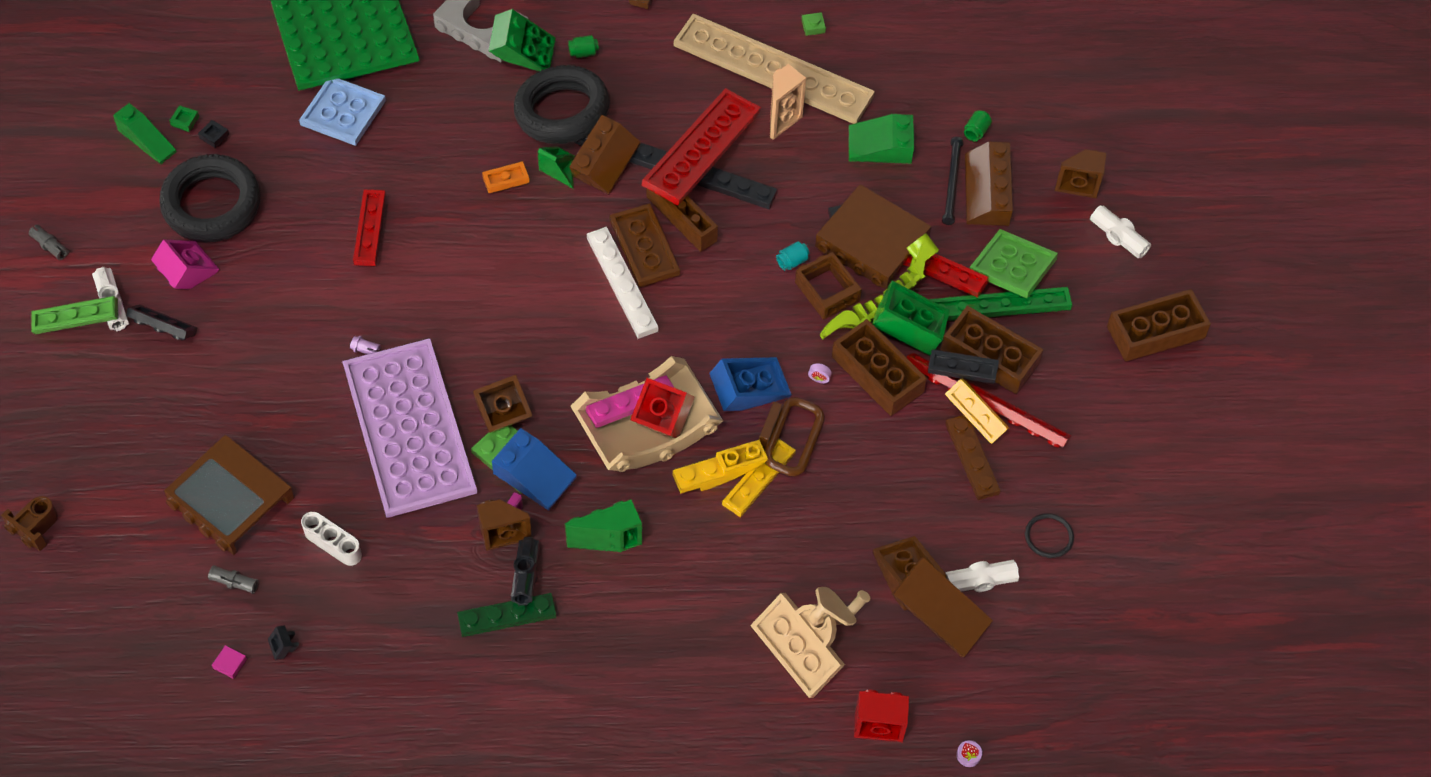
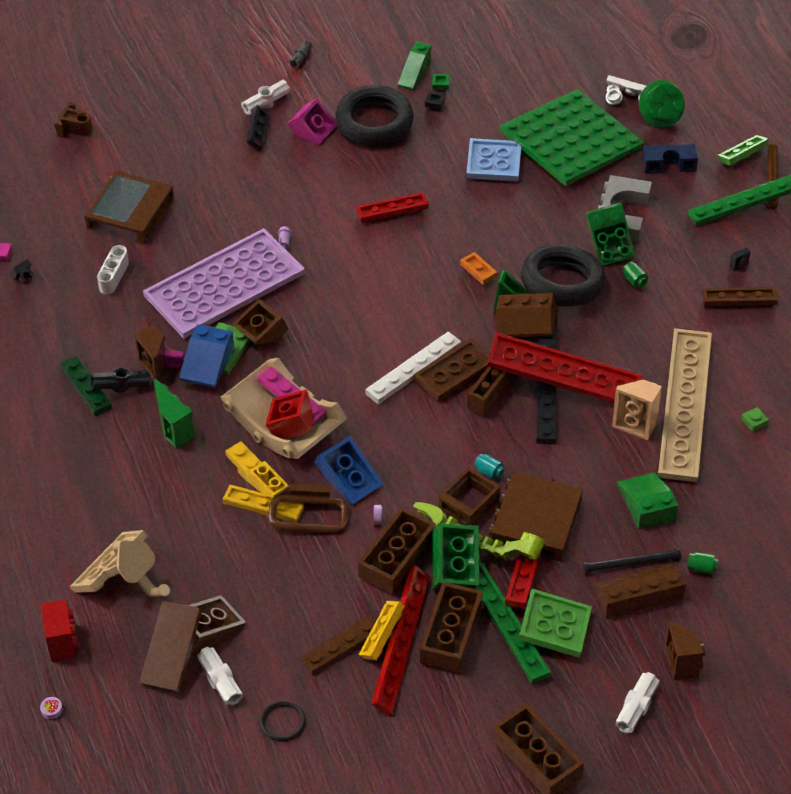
camera: 75 degrees right, 10 degrees down
(75, 315) = (242, 83): bright green tile -> none
(233, 579) = (64, 232): dark grey pin -> none
(963, 366) = (415, 602): black plate -> none

